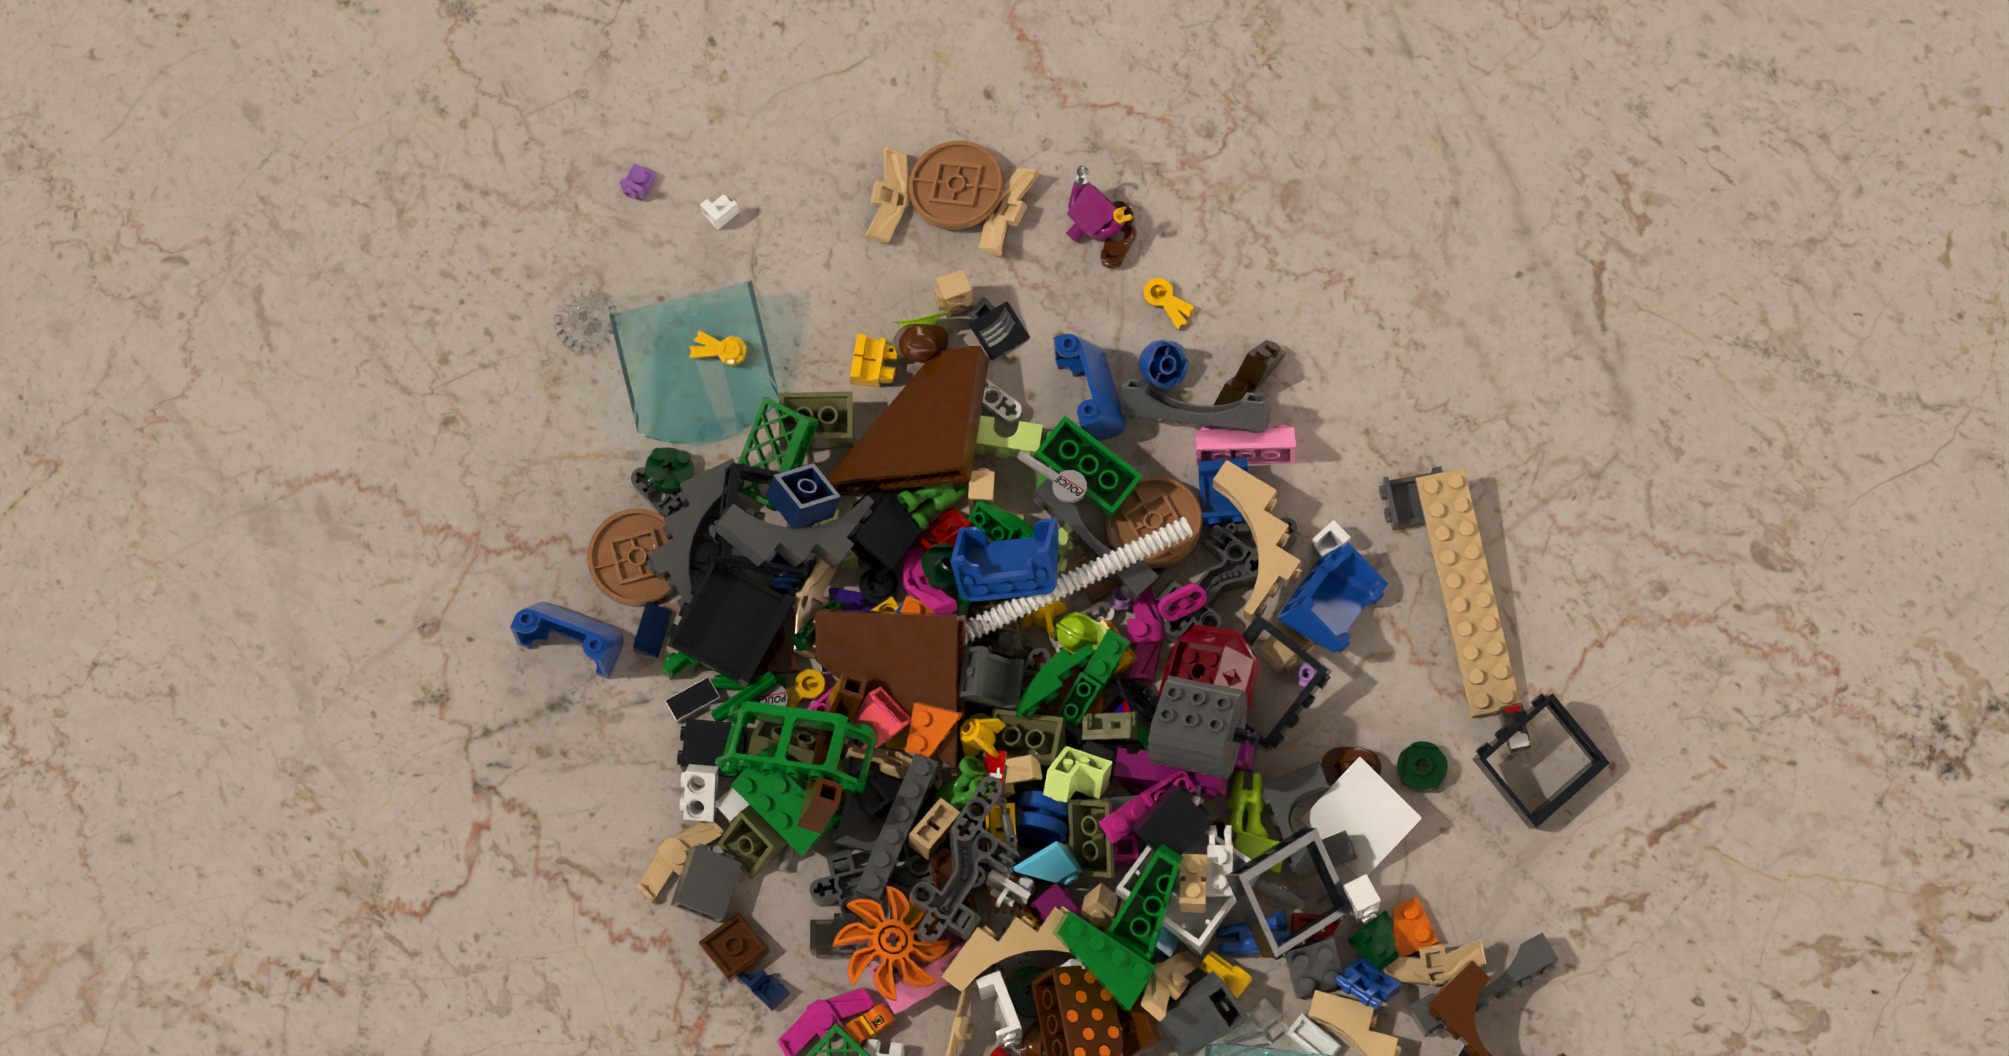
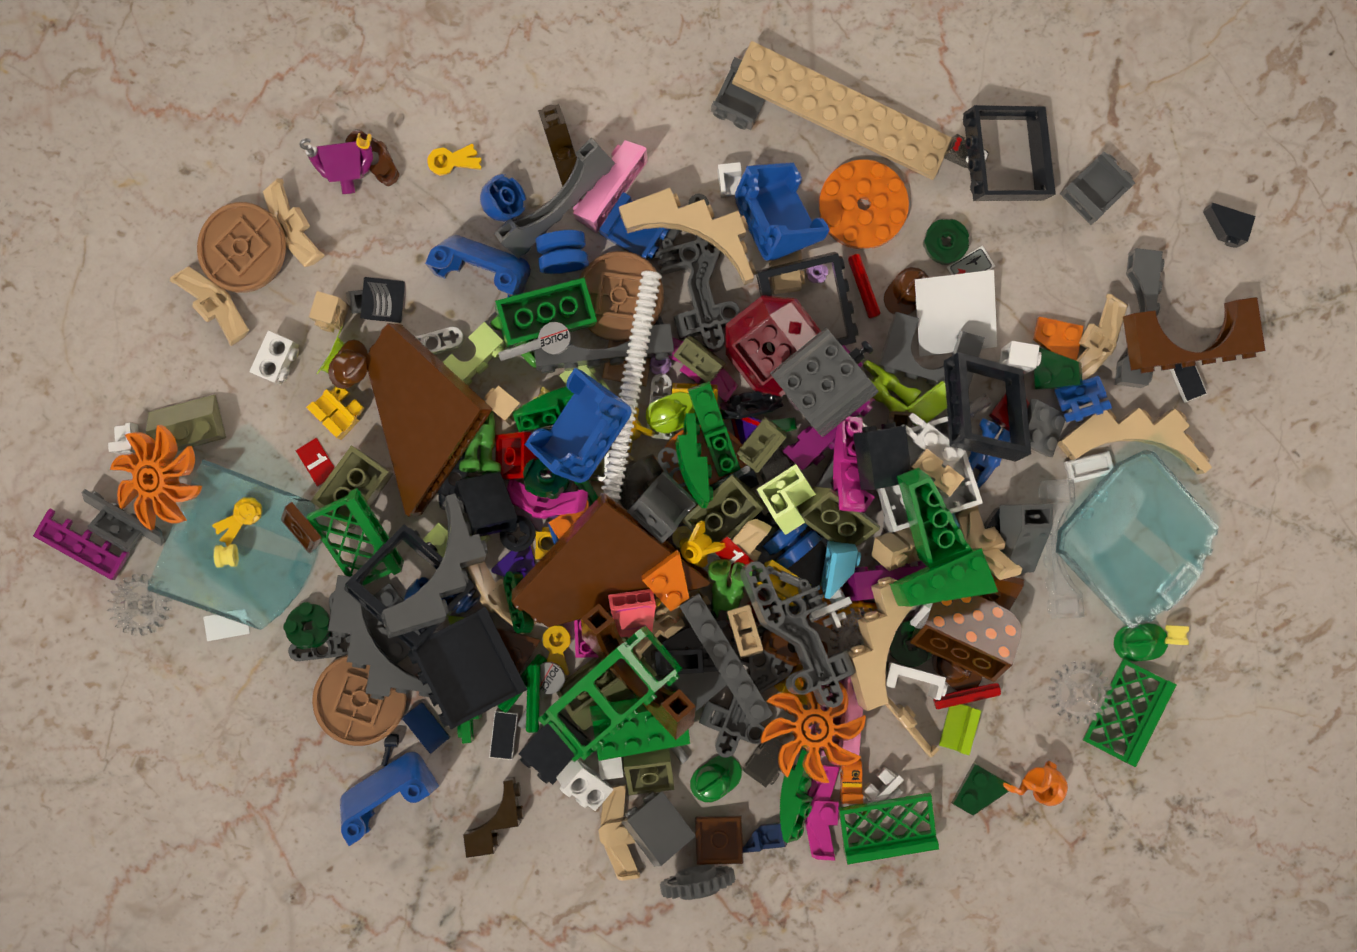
camera: 60 degrees left, 15 degrees up
(600, 240) = (79, 546): none -> magenta hinge
(616, 608) = (391, 740): none -> black hand
(617, 404) = (221, 627): none -> white sticker
(627, 750) = (483, 839): none -> dark brown arch
(637, 182) = (53, 484): medium lavender bracket -> none
(641, 256) = (117, 525): none -> dark grey bracket
(681, 360) = (226, 555): none -> light yellow wheel
(685, 943) = (697, 882): none -> dark grey gear
(707, 256) = (156, 477): none -> orange piece
(750, 401) = (300, 527): none -> reddish brown plate
(767, 250) = (189, 422): none -> olive slope
(786, 908) = (715, 778): none -> green piece
(803, 496) = (414, 548): dark blue brick -> none
(816, 985) = (794, 803): none -> green slope
(817, 374) = (315, 461): none -> red sticker
(878, 273) = (268, 355): none -> white brick
(1147, 627) = (699, 359): none -> olive hinge
(1153, 445) = (562, 252): none -> blue wheel
(1181, 602) = (702, 321): dark pink plate -> none
(1233, 977) = (1004, 494): yellow piece -> none
(1325, 724) = (864, 286): none -> red axle
(1396, 697) = (870, 182): none -> orange plate
(1425, 806) = (973, 262): none -> light grey sticker
(1575, 866) = (1097, 187): none -> dark grey panel
(1634, 1007) = (1229, 224): none -> black slope

